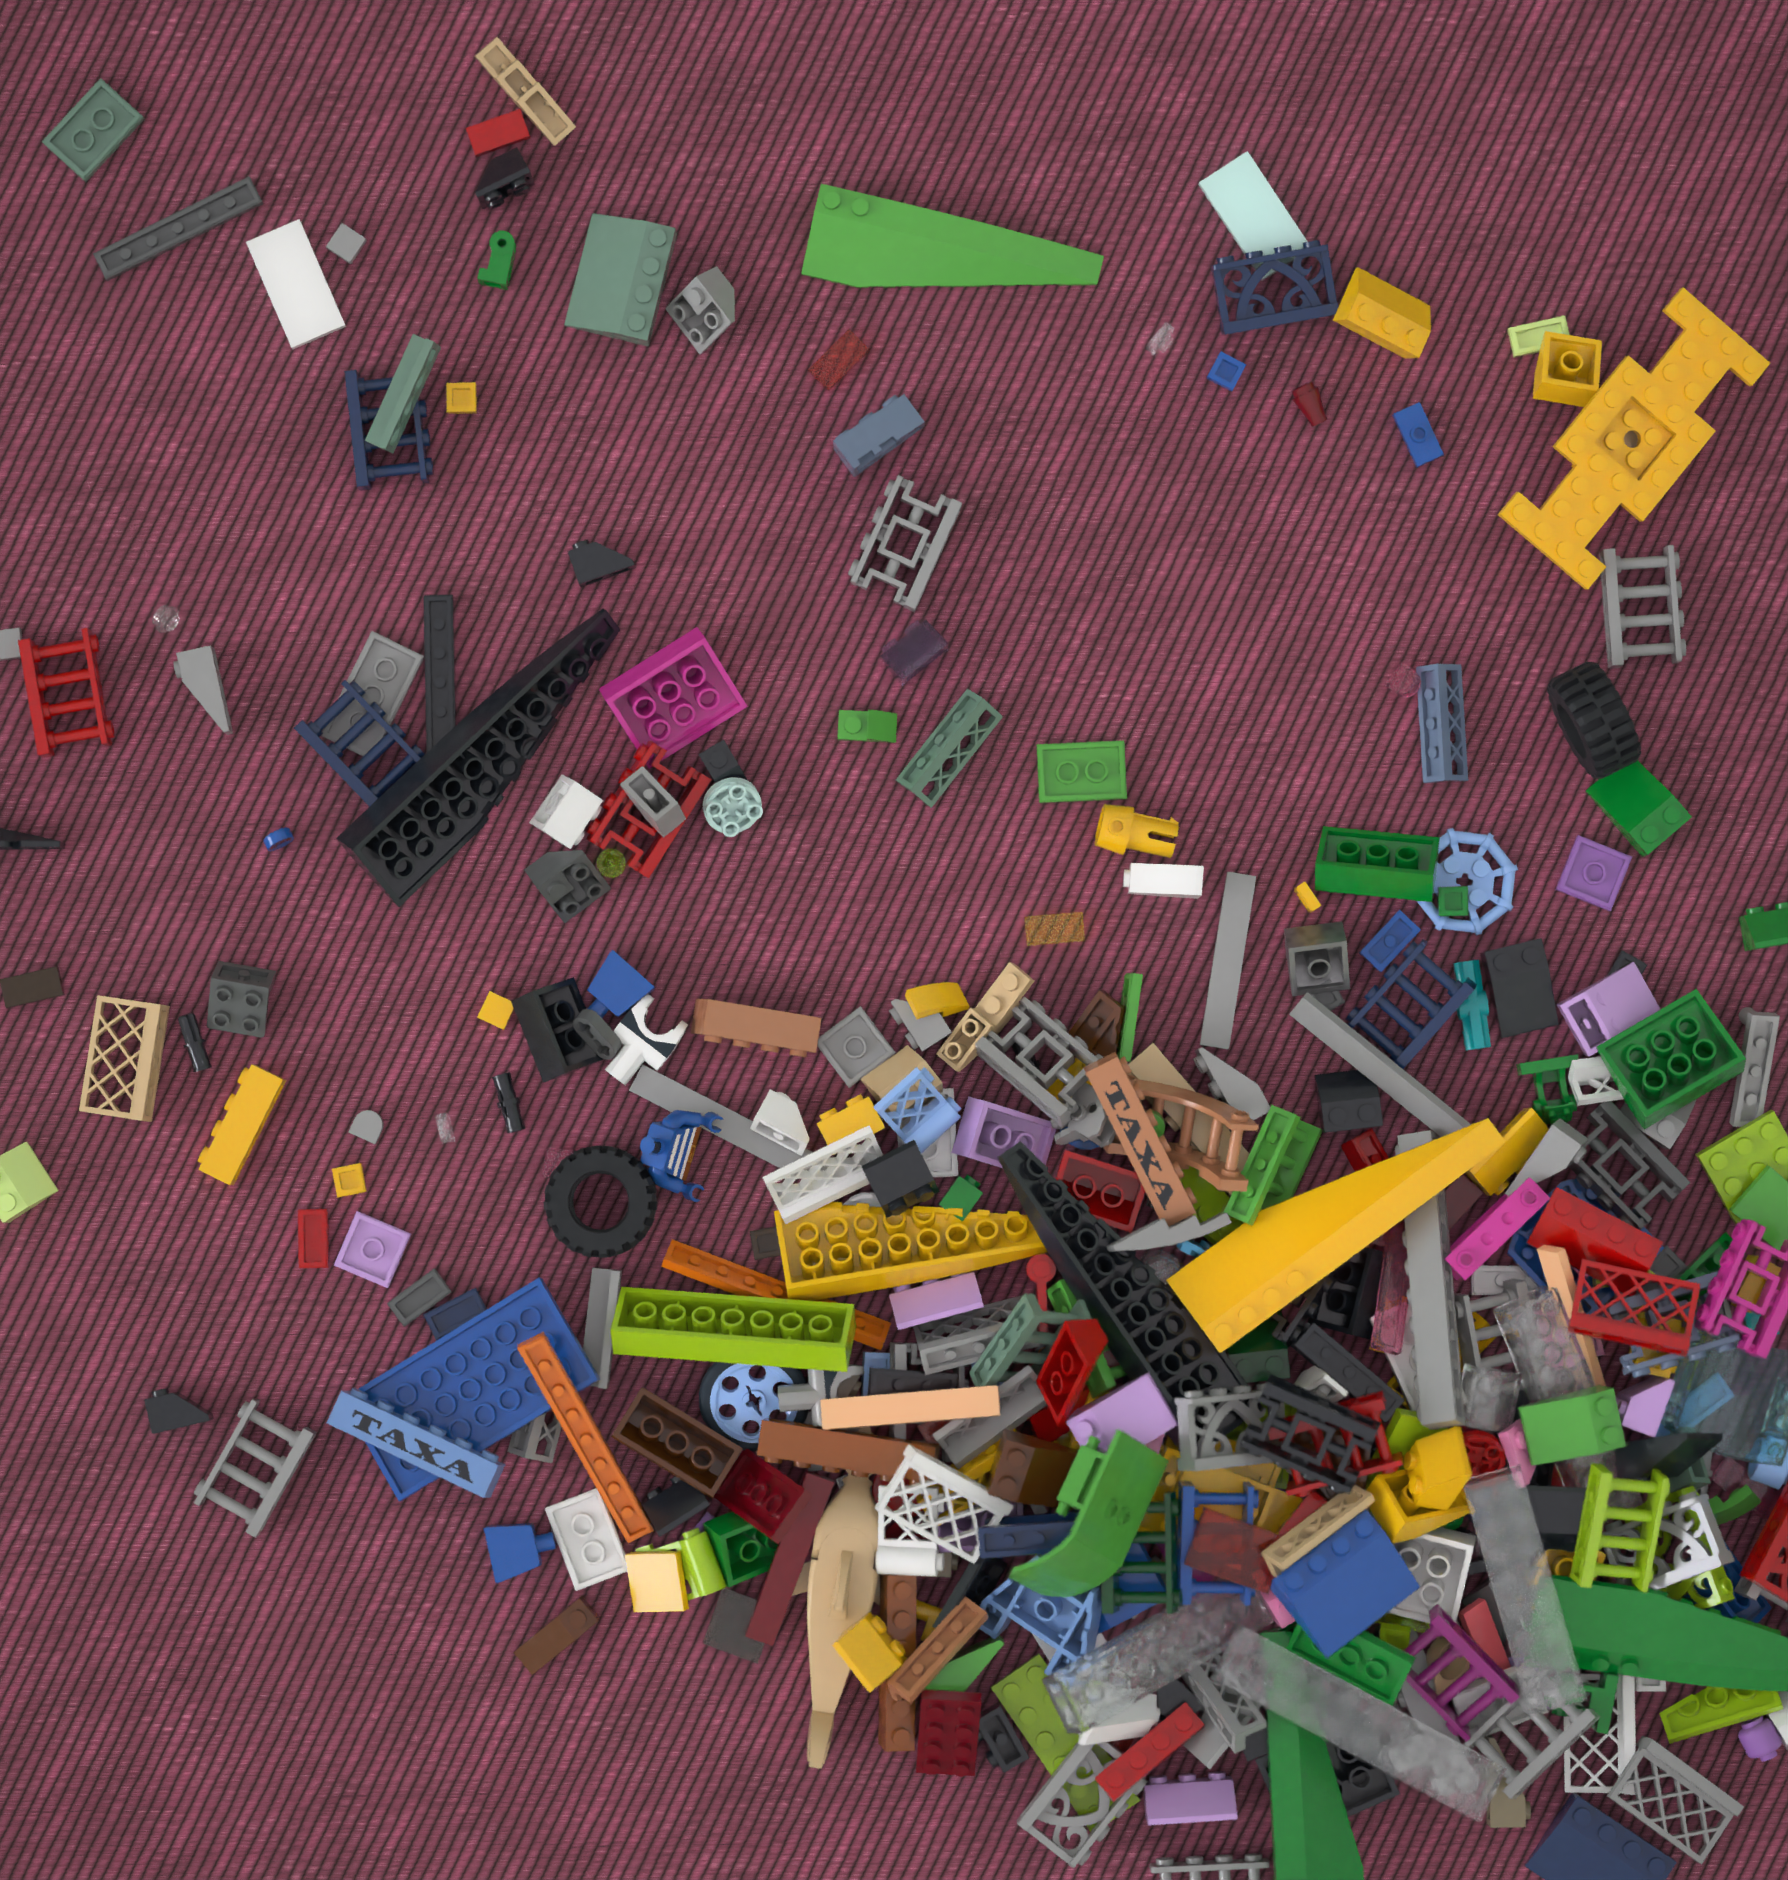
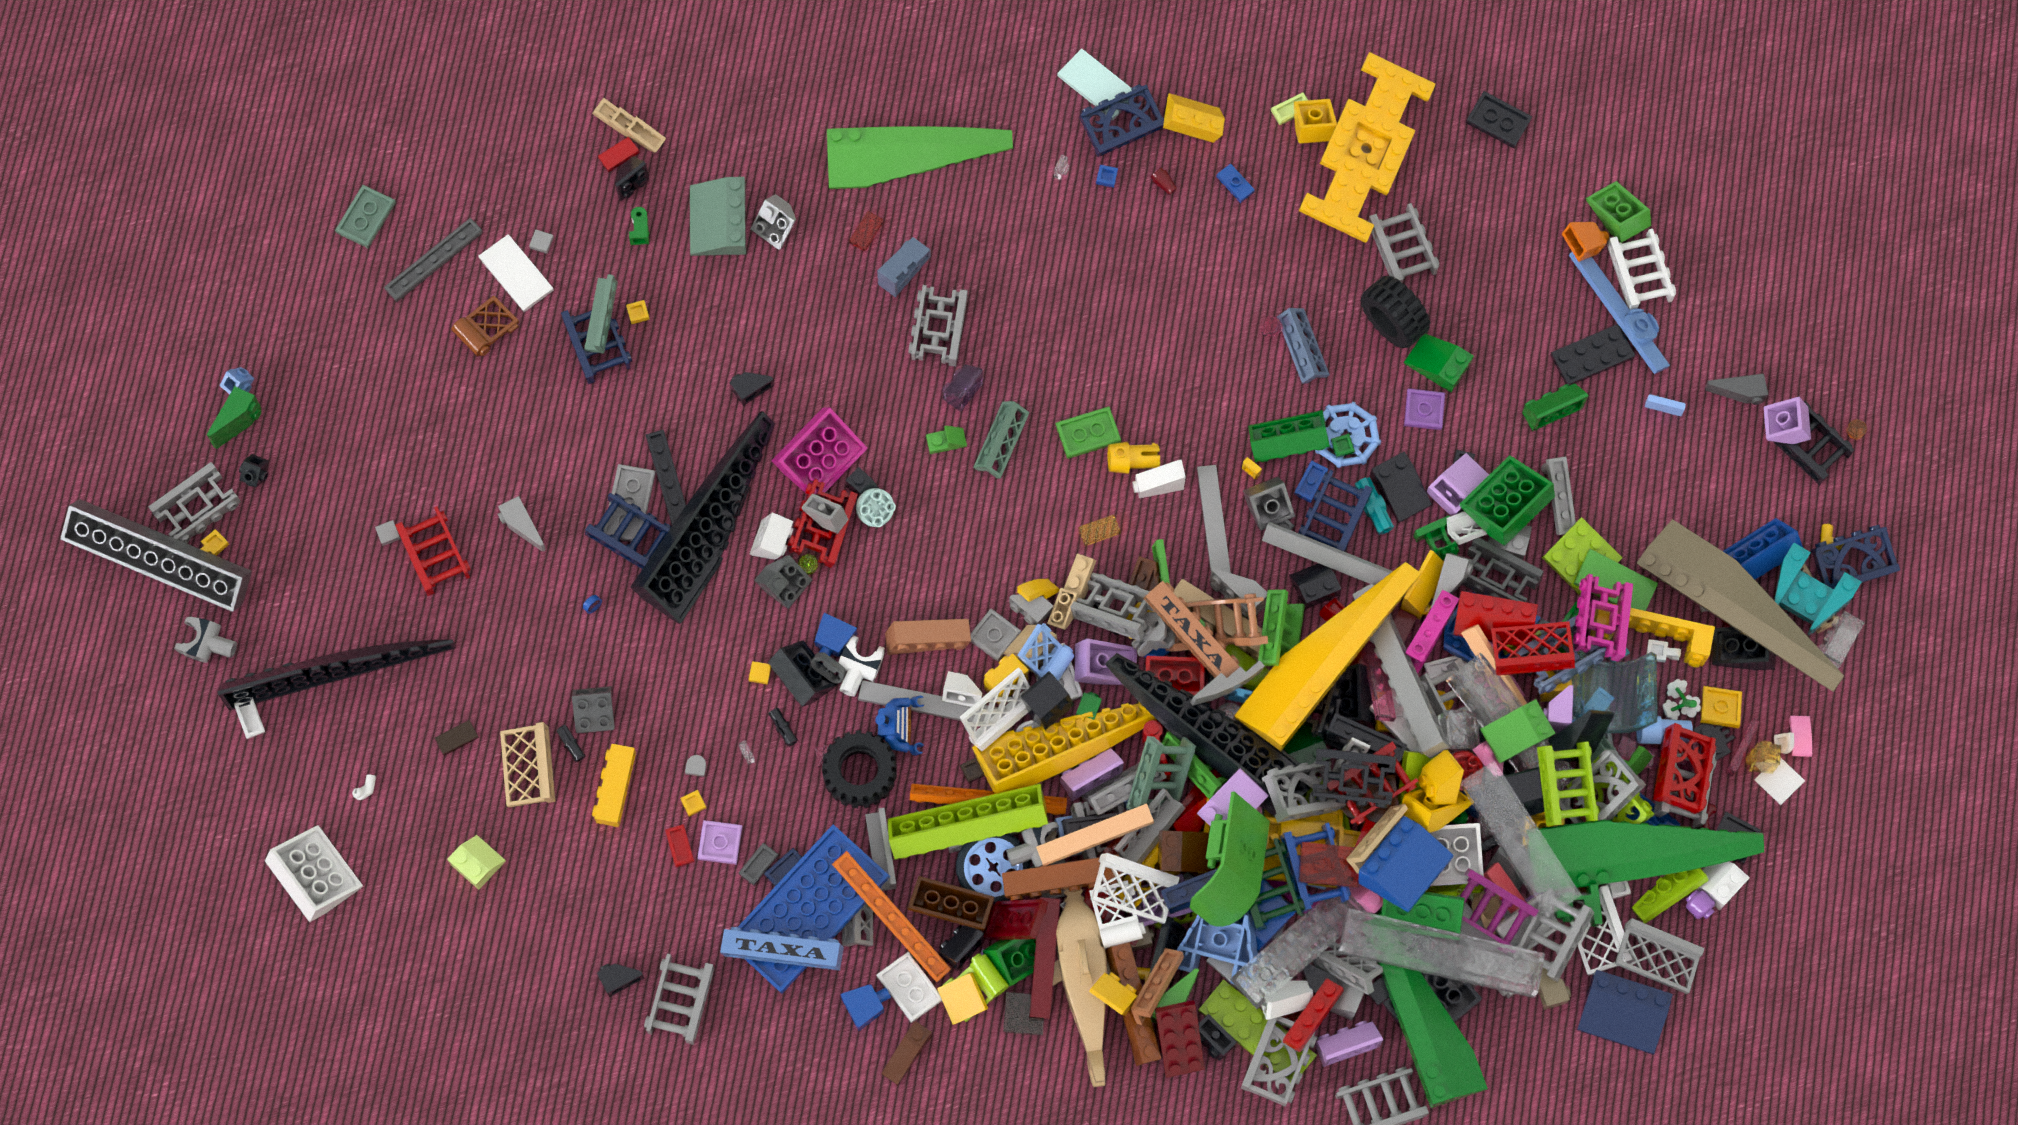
camera: 15 degrees left, 15 degrees down
(166, 618) = (485, 490): clear plate -> none
(211, 374) = (472, 333): none -> dark orange piece
(1070, 1365) = (1189, 777): red slope -> none

